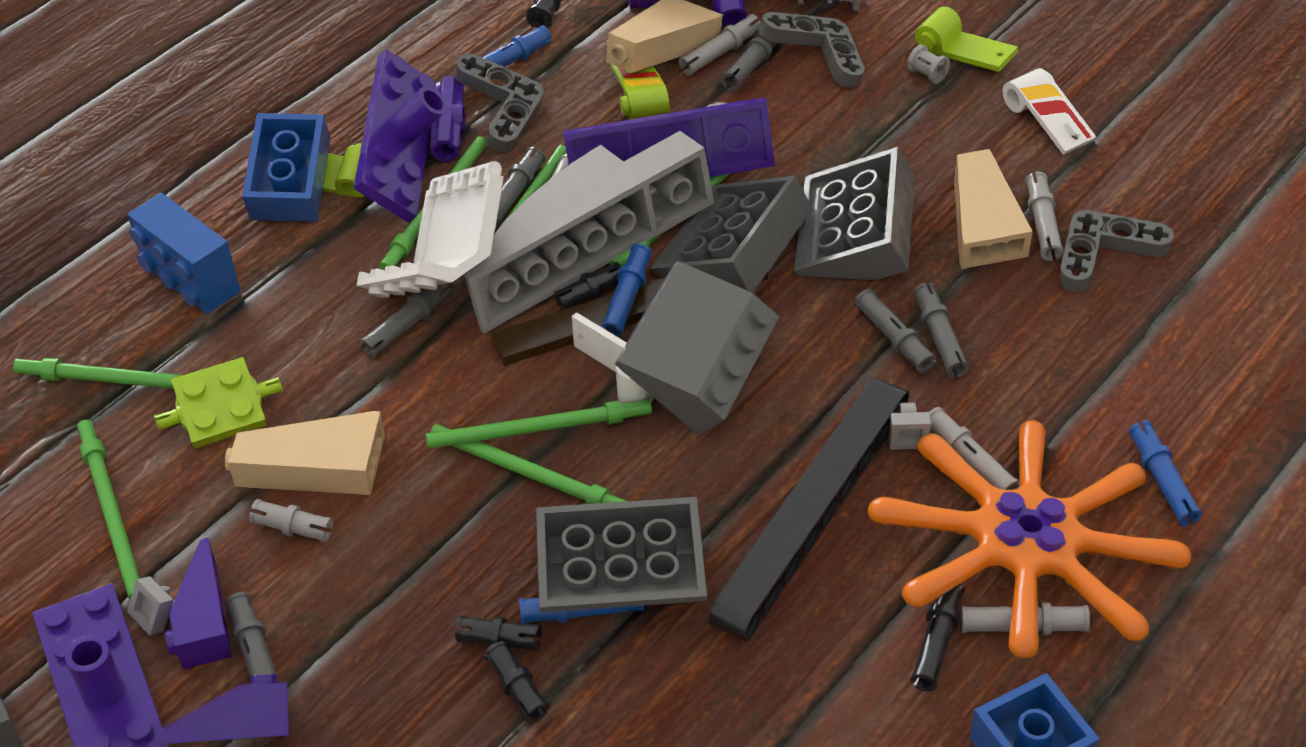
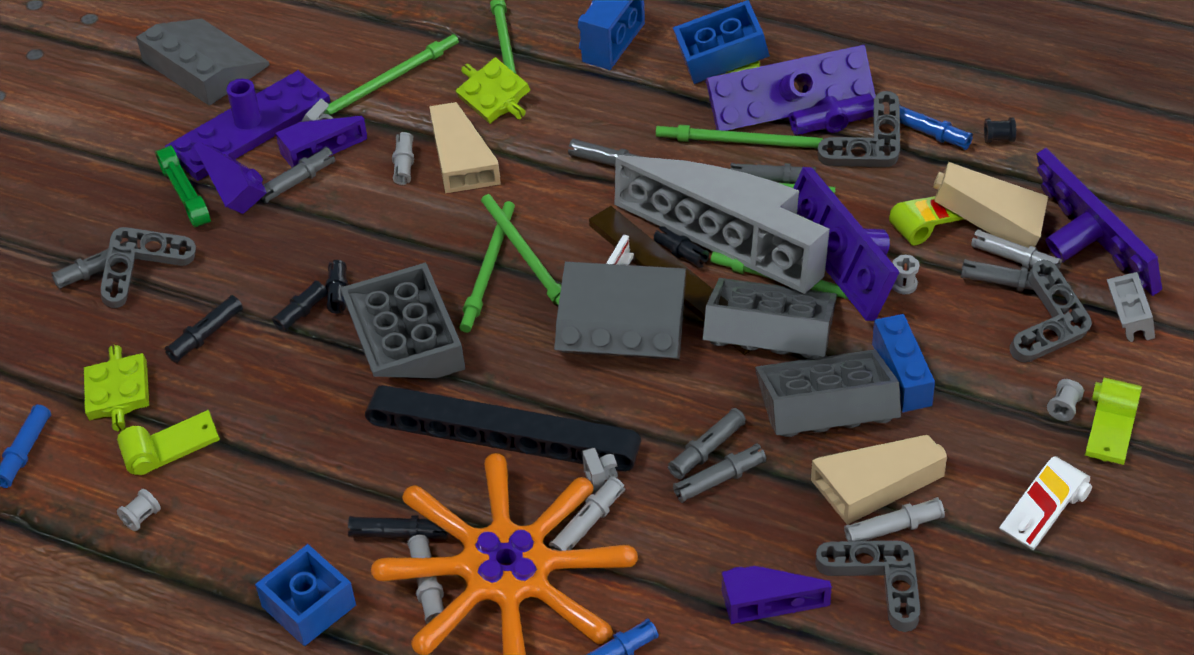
camera: 75 degrees right, 0 degrees up
(452, 235) = (627, 136): white hinge -> none
(631, 279) = (689, 261): blue pin -> none
(829, 147) = (904, 358): none -> blue brick
(1115, 330) = (766, 592): none -> dark purple slope

